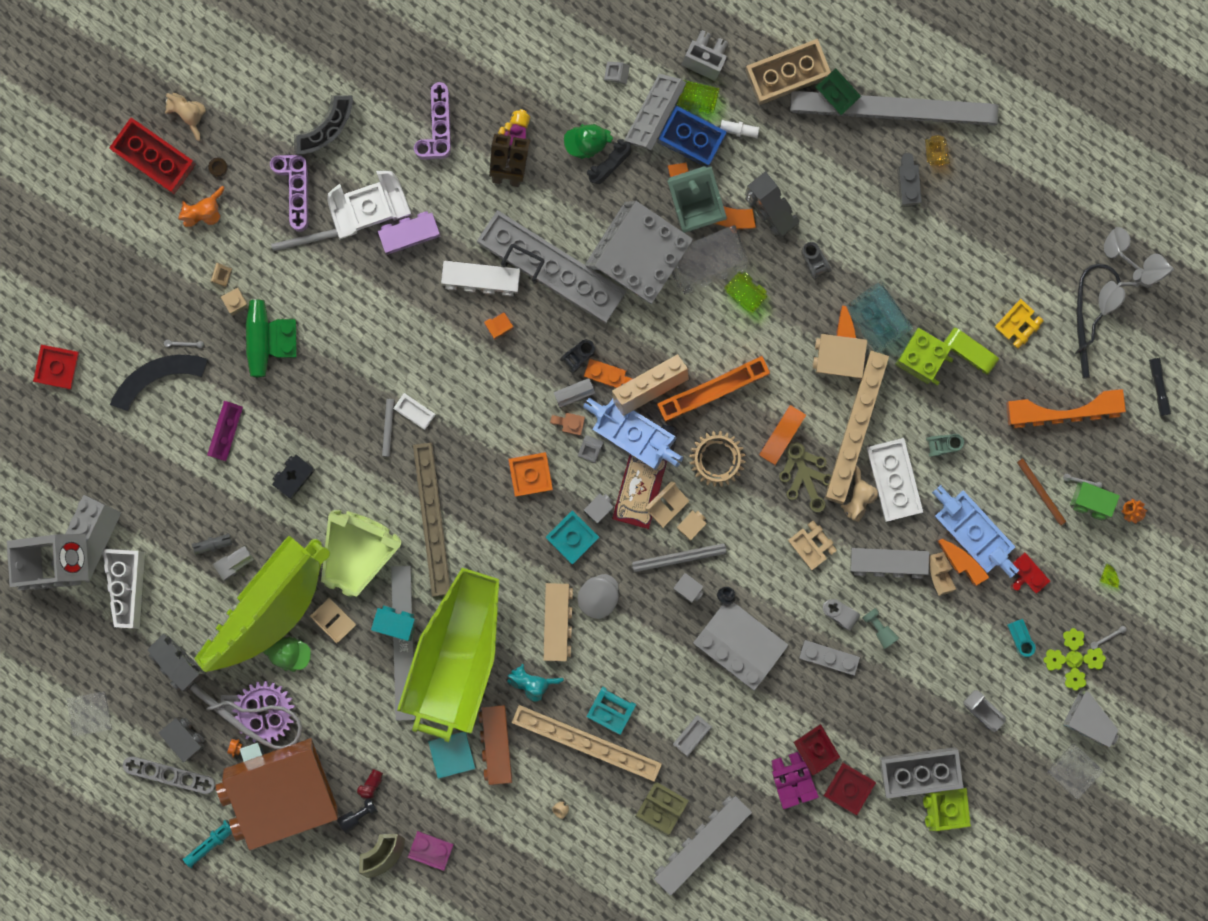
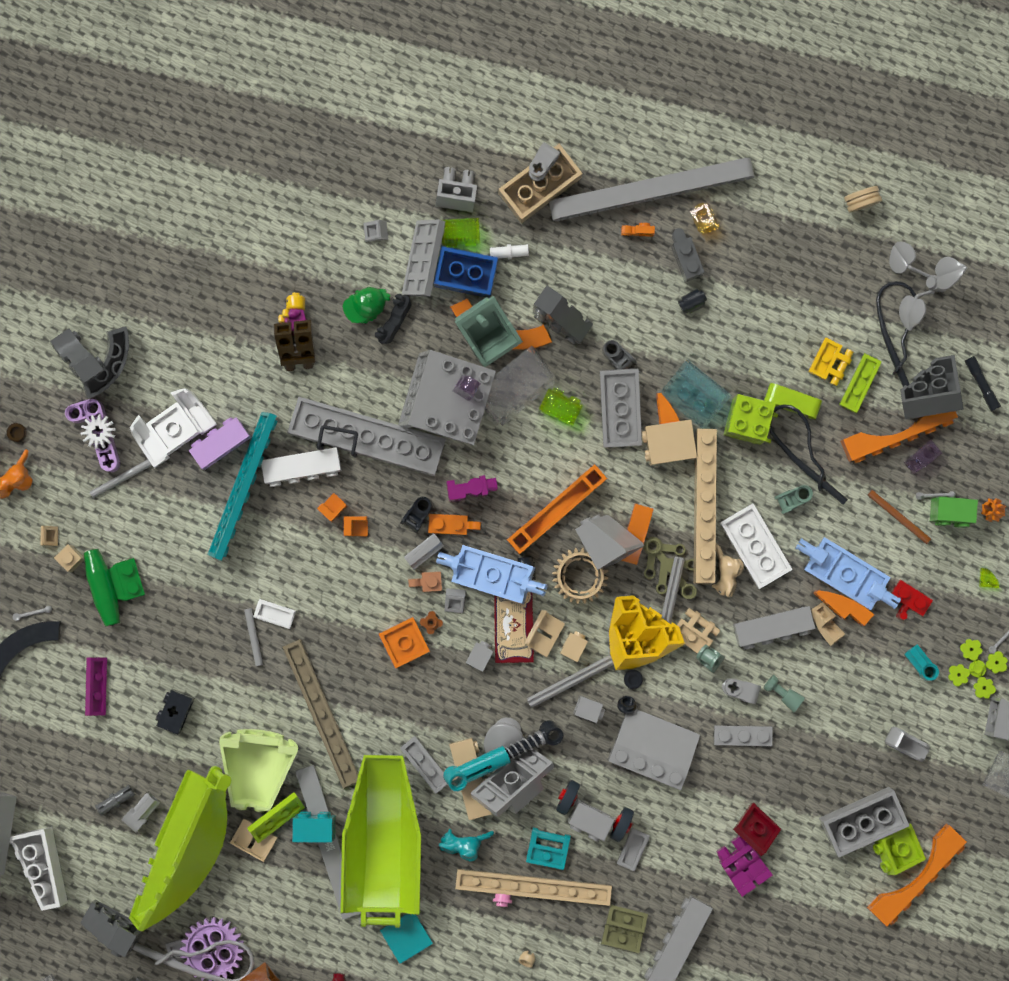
camera: 25 degrees left, 0 degrees up
(289, 654) = (221, 885): bright green hair -> none
(292, 182) = (103, 436): none -> white gear
(299, 115) = (81, 361): none -> dark grey brick
(360, 605) = (276, 817): none -> lime plate
(415, 284) = (245, 478): none -> teal plate
(437, 120) = (216, 327): lavender beam -> none
(496, 745) = (447, 915): dark orange brick -> none
(516, 350) = (355, 526): none -> orange panel
(517, 596) = (424, 764): none -> light grey plate
(553, 746) = (502, 900): none -> bright pink plate
(556, 461) = (431, 617): none -> dark orange plate
(572, 537) = (462, 691): teal plate -> none
(591, 608) = (500, 756): none -> piece
(597, 636) = (514, 783): none -> light grey brick
(640, 345) = (474, 488): none -> magenta hips
(650, 385) = (495, 523): tan brick -> none
(660, 246) = (466, 387): none -> clear purple leg
(660, 693) = (591, 819): none -> brick
(739, 573) = (633, 679): none -> black plate
(752, 432) = (607, 540): none -> light grey slope
(758, 531) = (640, 634): none -> yellow brick
(799, 50) = (544, 159): none -> light grey piece
(800, 502) = (672, 589): none -> light grey axle
(803, 309) = (620, 407): none -> light grey plate
(818, 573) = (710, 658): none -> sand green piece
(838, 91) = (593, 188): dark green plate -> none
(849, 788) = (799, 857): dark red plate -> none
(873, 144) = (642, 229): none -> orange plate
(902, 227) = (692, 301): none -> black brick
(975, 433) = (819, 479): none -> black piece
(992, 818) = (944, 847): none -> orange arch
(1041, 352) = (860, 383): none -> lime plate
(1080, 440) = (922, 457): none -> clear purple leg
(1095, 175) = (863, 199): none -> tan head
(1108, 378) = (933, 390): none -> dark grey brick

